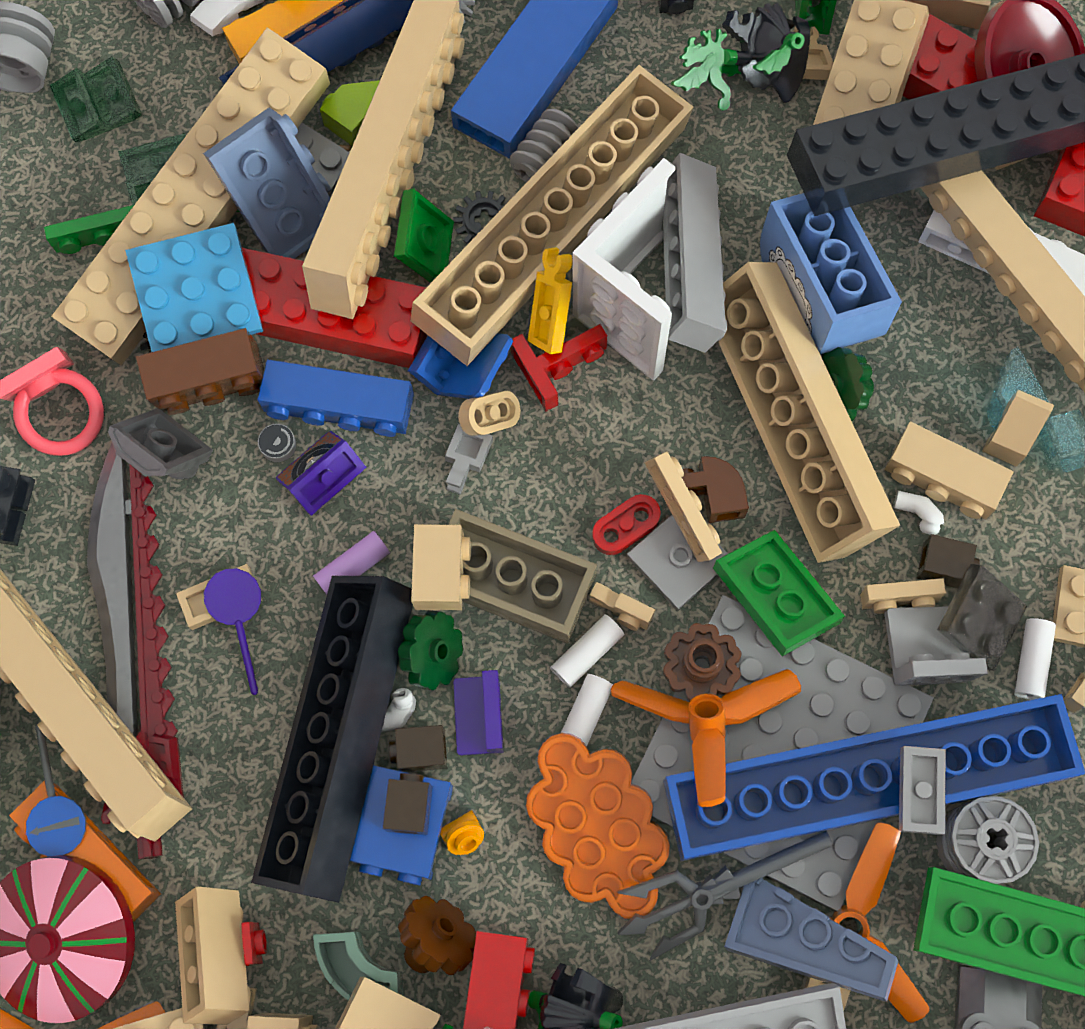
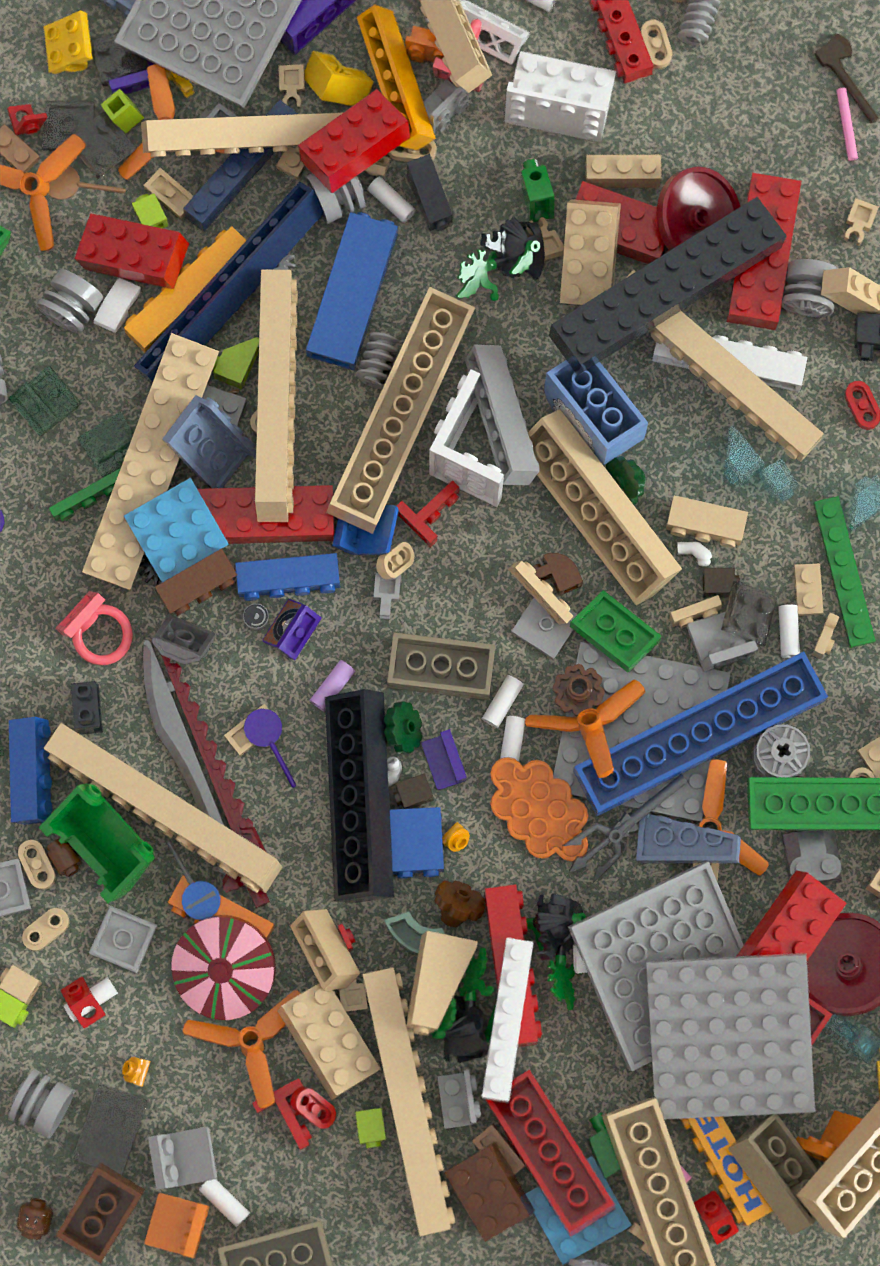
camera: 20 degrees left, 5 degrees up
(408, 805) = (419, 827): dark brown brick -> none
(423, 236) = (315, 449): green tile -> none
(438, 567) = (396, 673): tan brick -> none
(474, 211) = (339, 416): black gear -> none
(551, 302) = (418, 478): yellow plate -> none
(623, 523) = (505, 612): red plate -> none
(630, 611) = (524, 669): tan plate -> none
(922, 790) = (730, 733): light grey plate -> none
(1018, 428) = (744, 482): tan slope -> none

